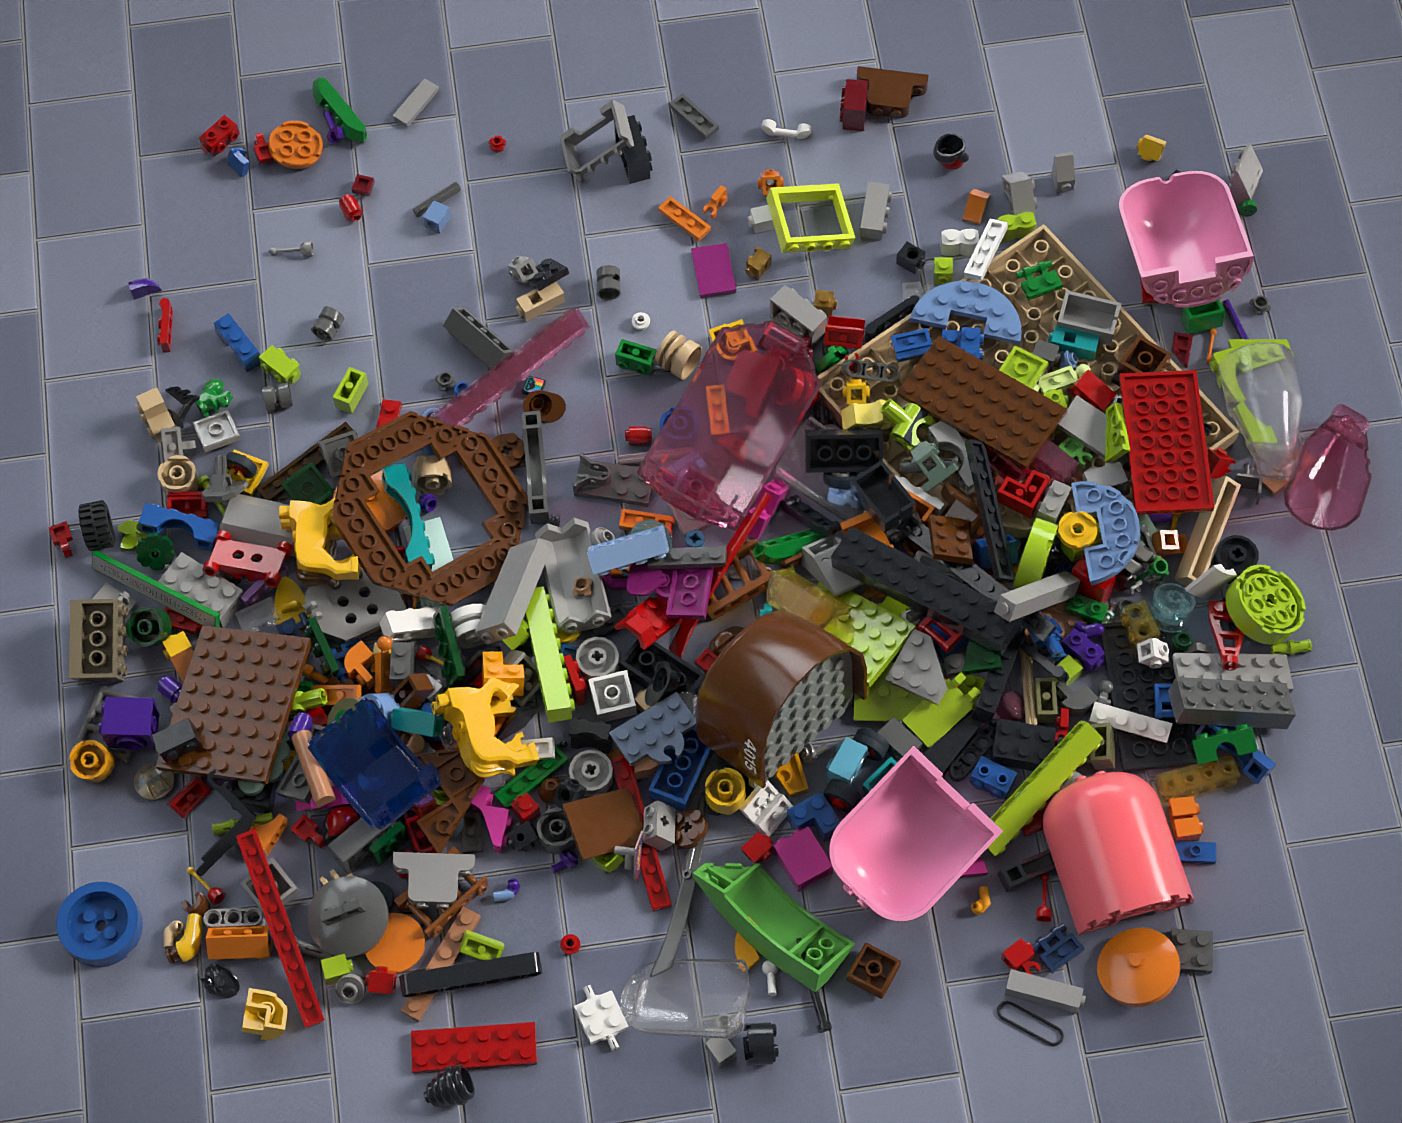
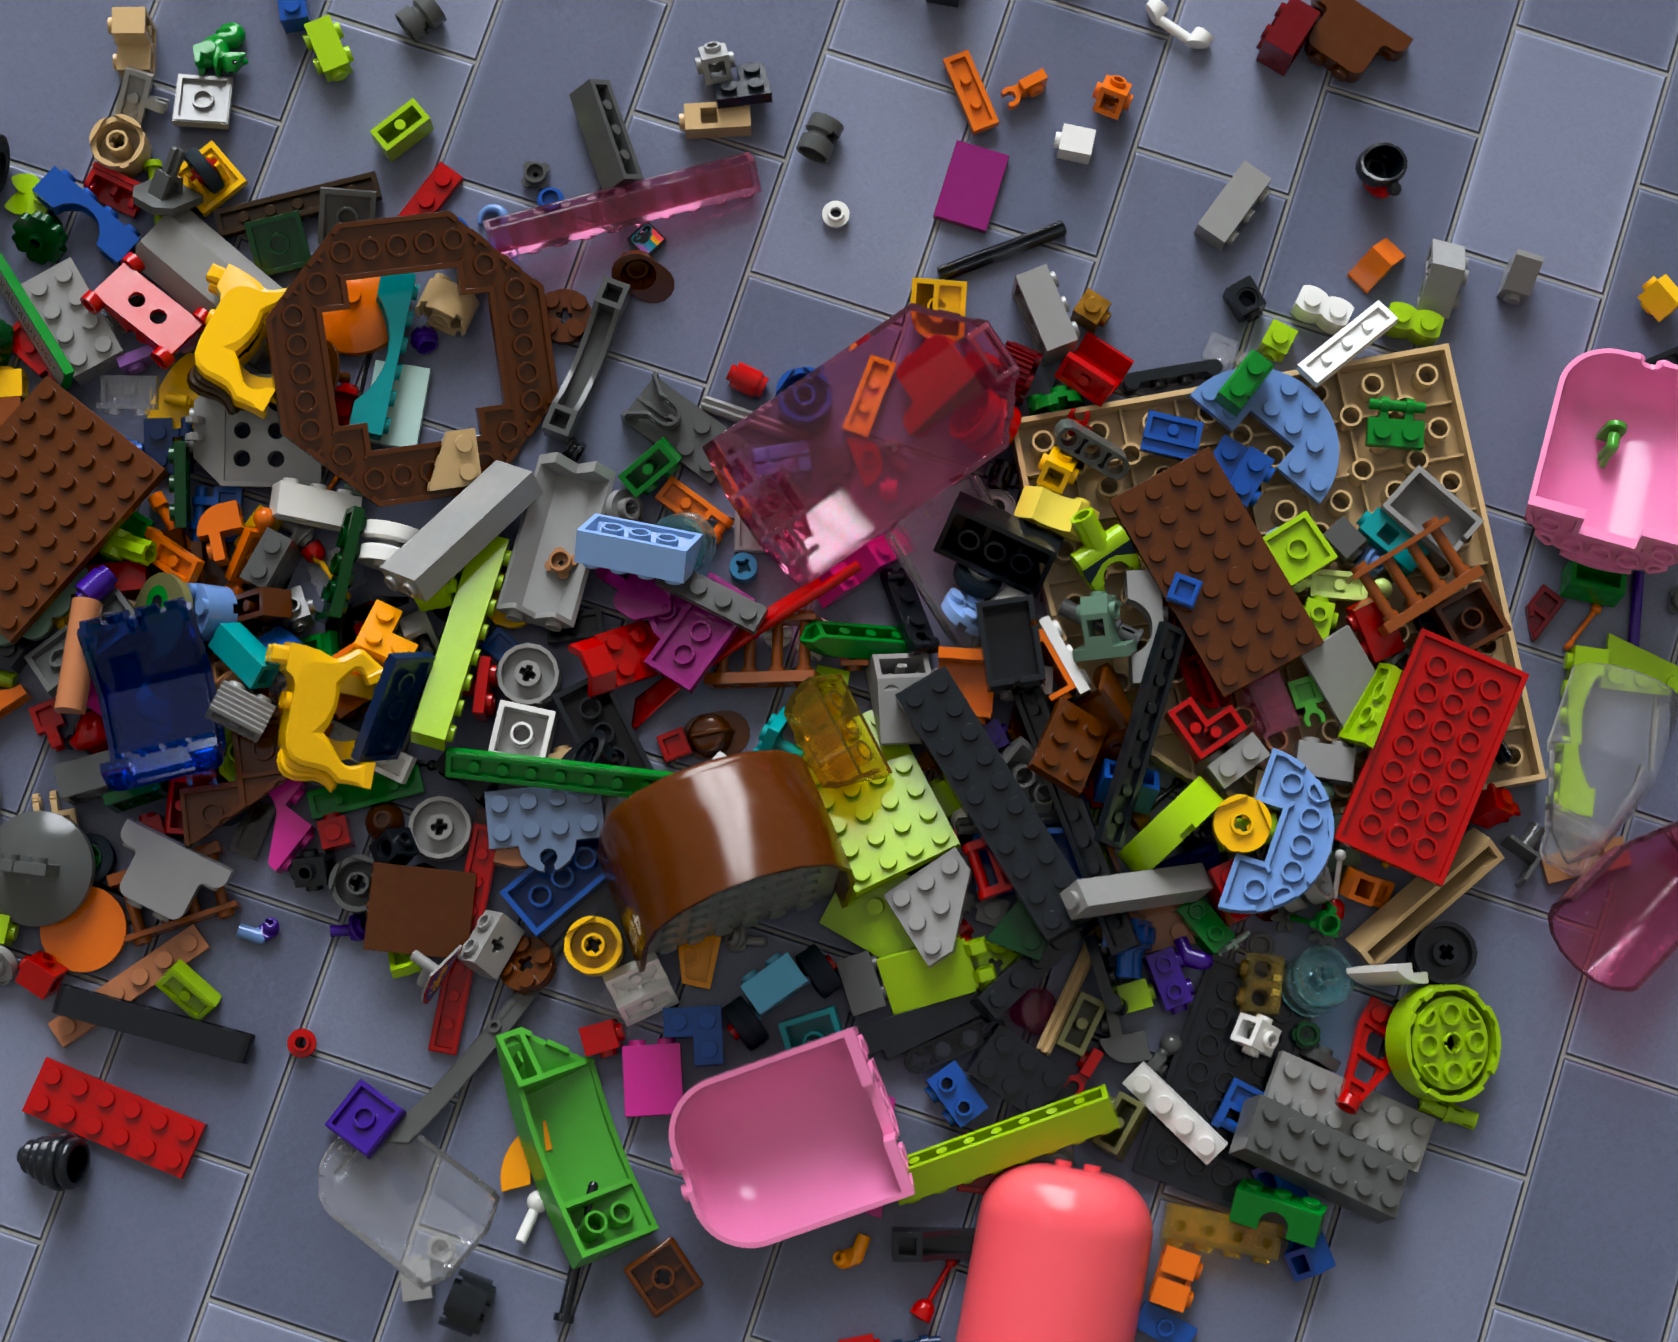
camera: 20 degrees right, 15 degrees up
(185, 399) = (182, 41): black piece -> none
(277, 396) = (303, 91): dark grey wheel -> none
(434, 751) = (240, 710): none -> light grey brick
(487, 557) = (457, 462): none -> tan wing
(527, 704) = (393, 706): none -> dark blue plate
(601, 1017) = (291, 1160): white plate -> none
(607, 507) = (649, 467): none -> green brick
(635, 357) = (799, 266): green brick -> none
(635, 968) = (365, 1118): none -> dark purple tile
(640, 700) = (548, 772): none -> green tile
(678, 355) = (855, 292): tan wheel -> none
(752, 295) = (1001, 250): none -> black axle
(758, 263) = (1034, 207): pearl gold brick -> none
(808, 194) = (1150, 137): neon yellow window -> none
(938, 293) = (1244, 382): none -> green brick
(969, 418) = (1184, 591): none -> blue tile
(1109, 364) = (1416, 604): none -> dark orange fence
(1166, 232) = (1610, 433): none -> bright green piece

